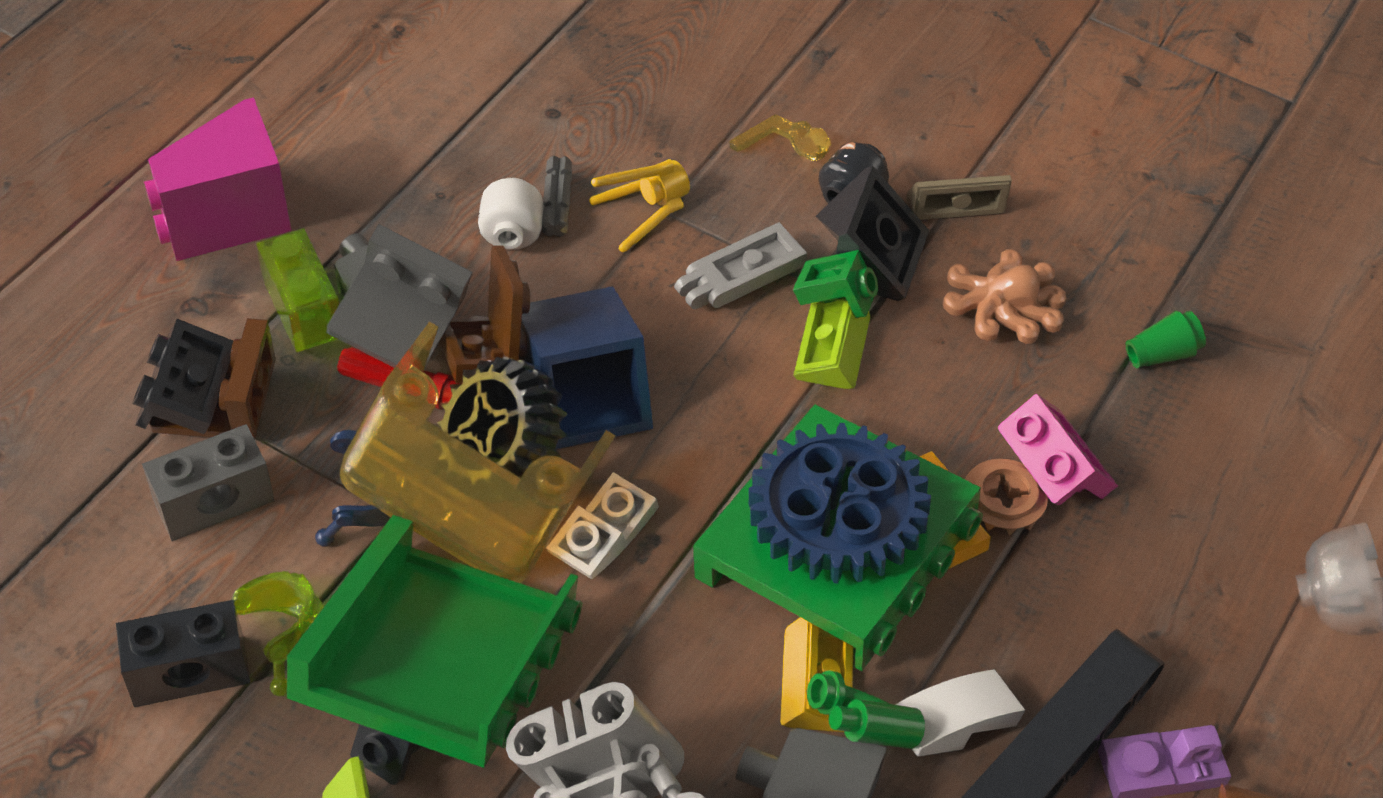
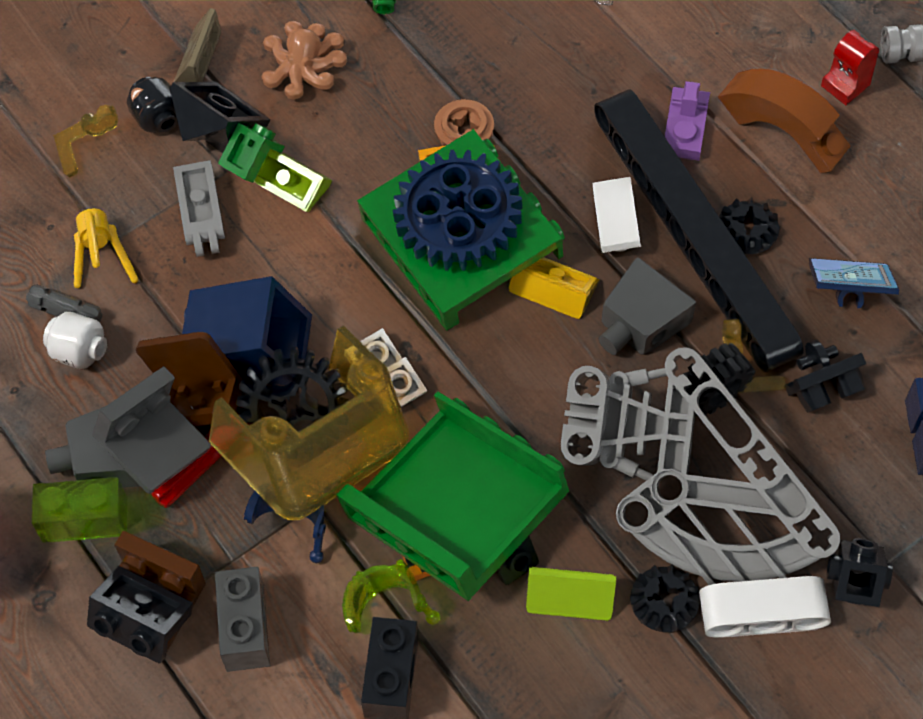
camera: 65 degrees left, 10 degrees up
(864, 716) = (618, 254): green plant -> none
(1054, 452) = (449, 83): bracket -> none

